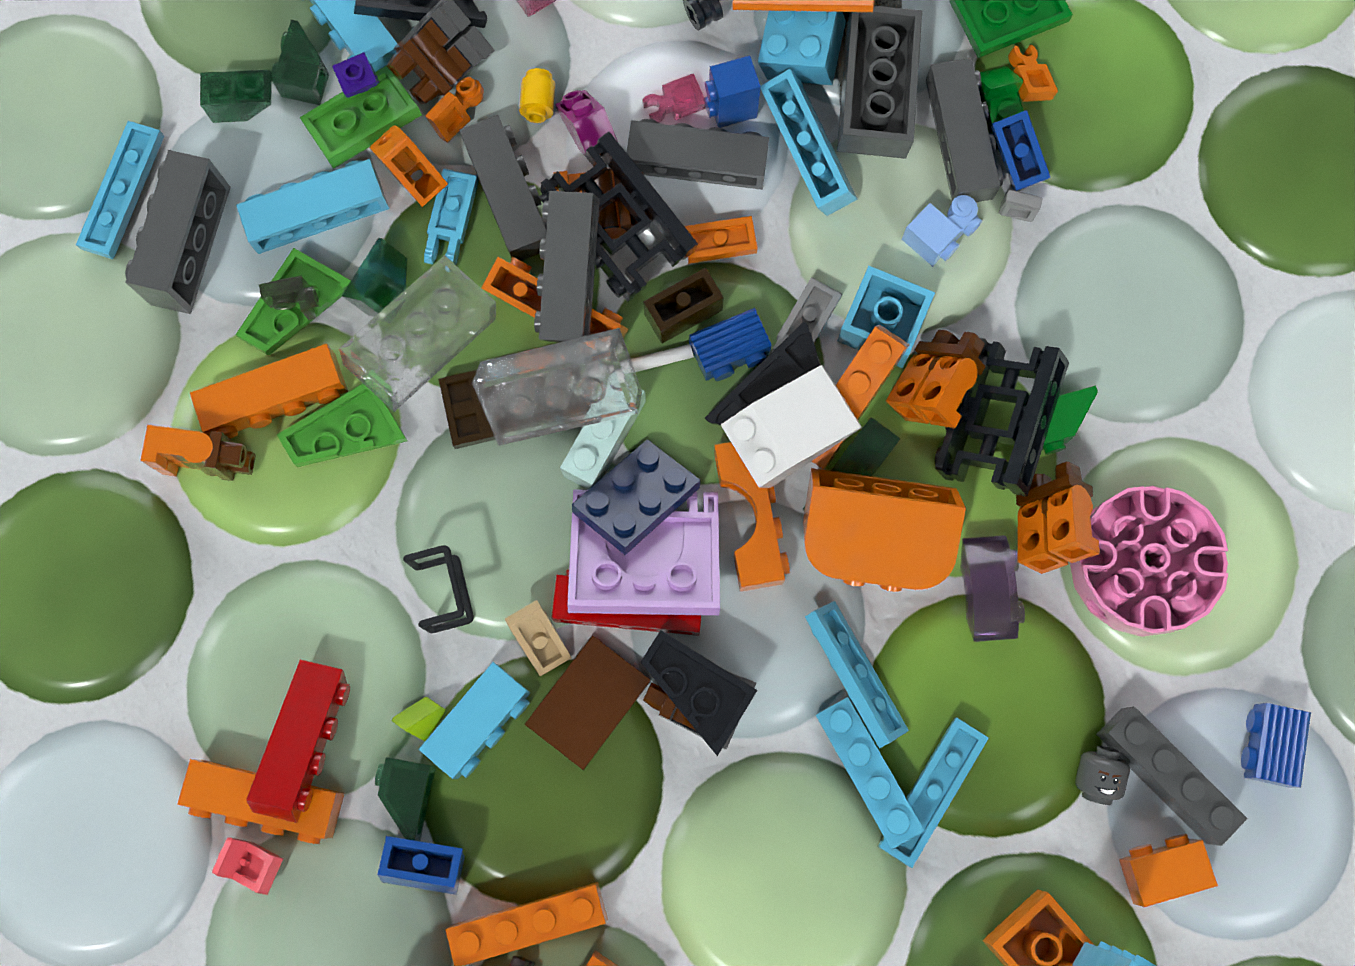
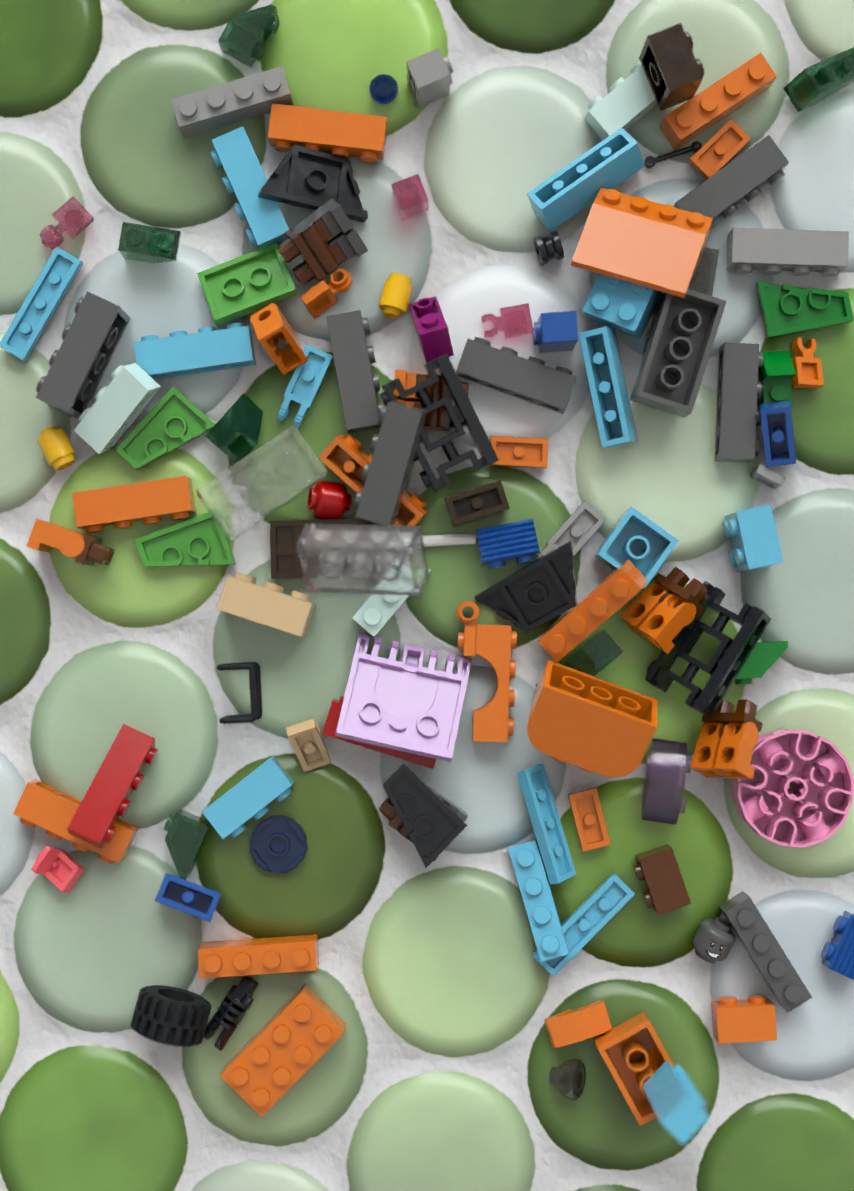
camera: 10 degrees right, 10 degrees up
(140, 88) = (71, 218): none -> clear pink plate
(165, 348) = (56, 448): none -> yellow brick
(228, 282) = (116, 407): none -> light aqua brick
(287, 292) = (162, 427): clear smoke bracket -> none
(300, 69) = (205, 230): clear green slope -> none
(355, 75) = (250, 255): dark purple bracket -> none
(420, 718) = (206, 786): lime slope -> none
(452, 475) = (266, 604): none -> tan brick
(504, 337) = (328, 500): none -> red head
(525, 775) = (278, 844): none -> dark blue tile
(587, 702) = (336, 800): reddish brown tile -> none
(635, 496) = (406, 651): dark blue plate -> none
(707, 469) = (467, 639): none -> orange plate
(791, 427) = (538, 629): white slope -> none
(908, 657) = (589, 819): none -> orange plate
(936, 235) = (693, 486): light blue brick -> none
(958, 925) = (578, 1024): none -> orange slope
(1017, 713) = (662, 879): none -> reddish brown brick
(1022, 275) = (752, 538): none -> medium azure brick

